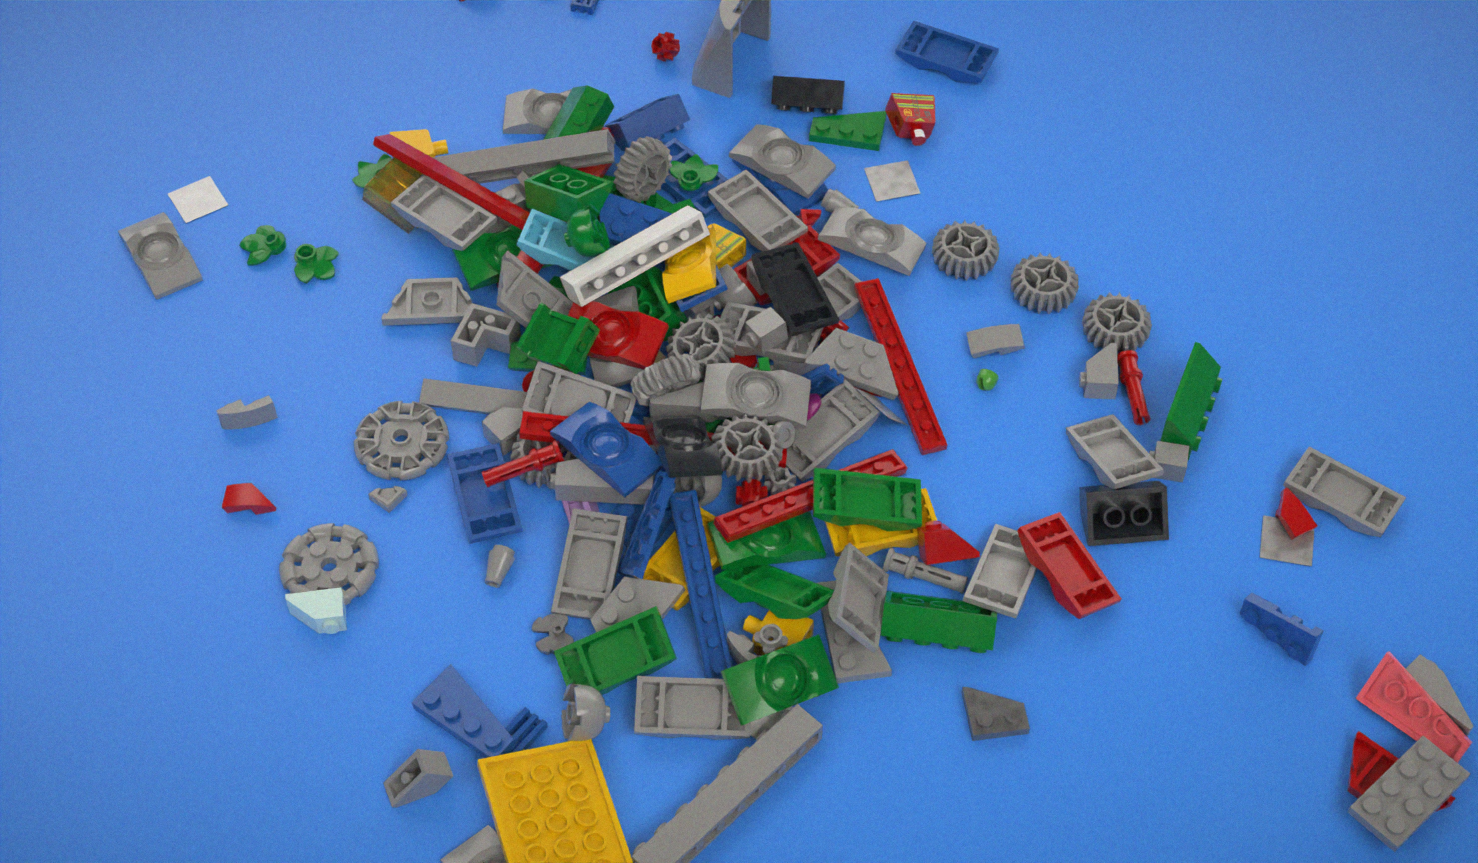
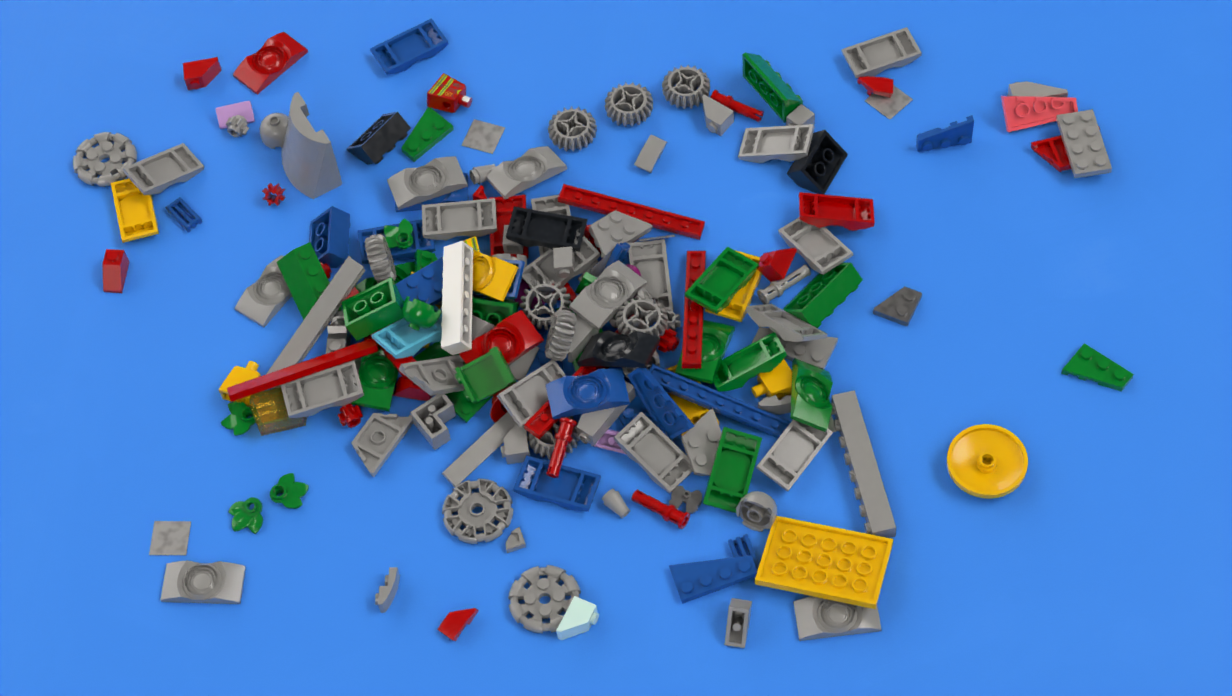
camera: 50 degrees left, 5 degrees up
(440, 260) = (350, 415): none -> red gear
(522, 624) = (668, 512): none -> red pin
(767, 632) = (781, 378): light grey plate -> none
(986, 379) = (674, 174): bright green hinge -> none

